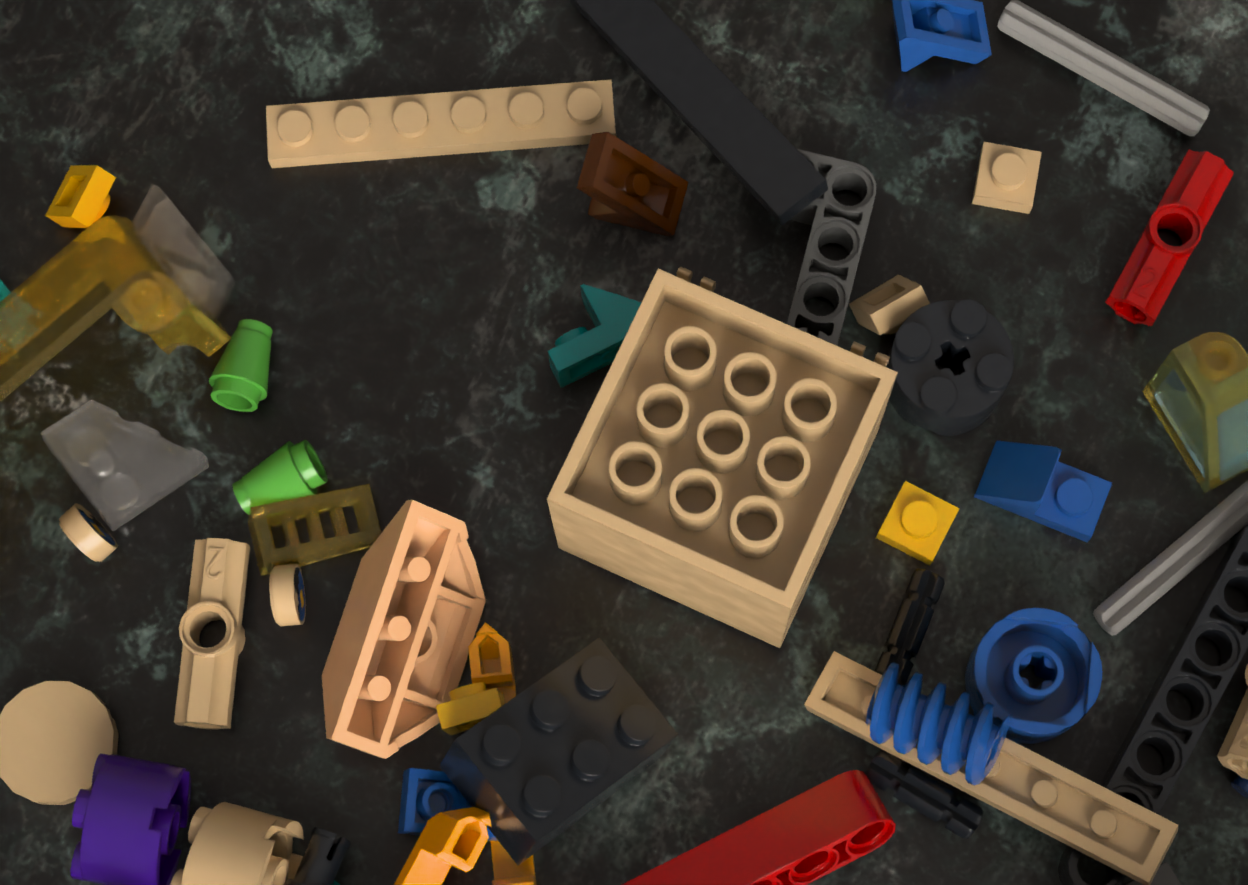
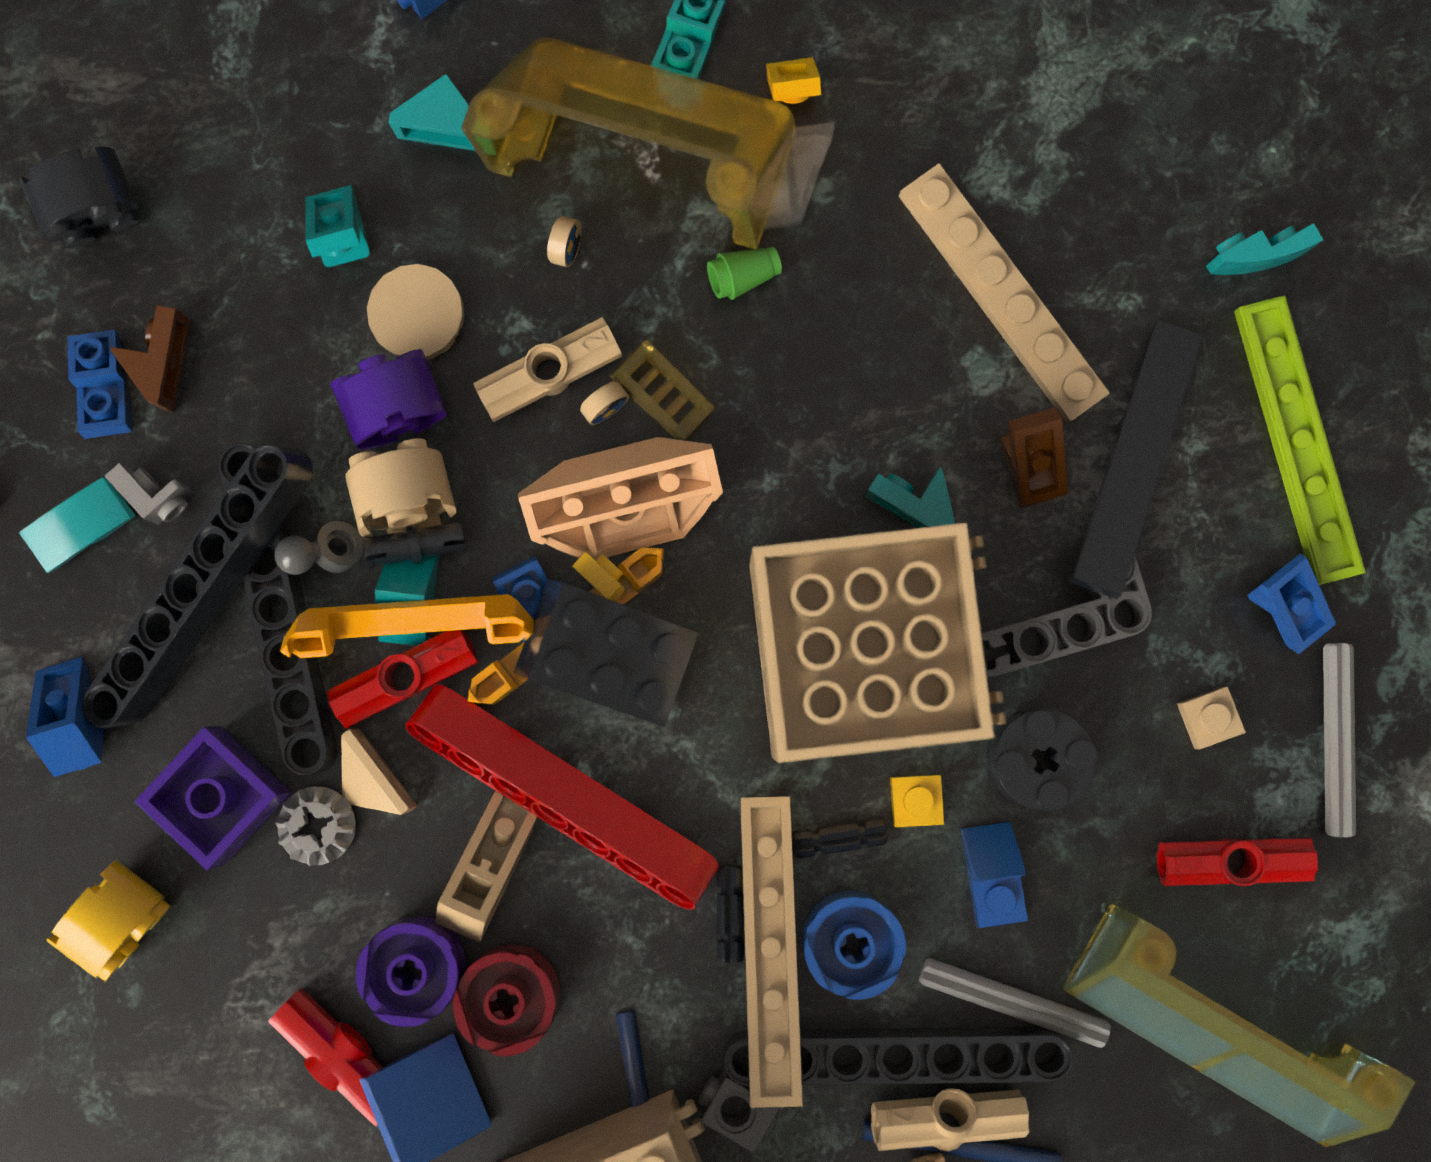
camera: 55 degrees right, 10 degrees up
(119, 462) = (626, 230): clear wing -> none
(284, 475) = (683, 347): bright green cone -> none
(889, 305) = (1061, 691): tan plate -> none
(935, 725) = (773, 899): blue piece -> none

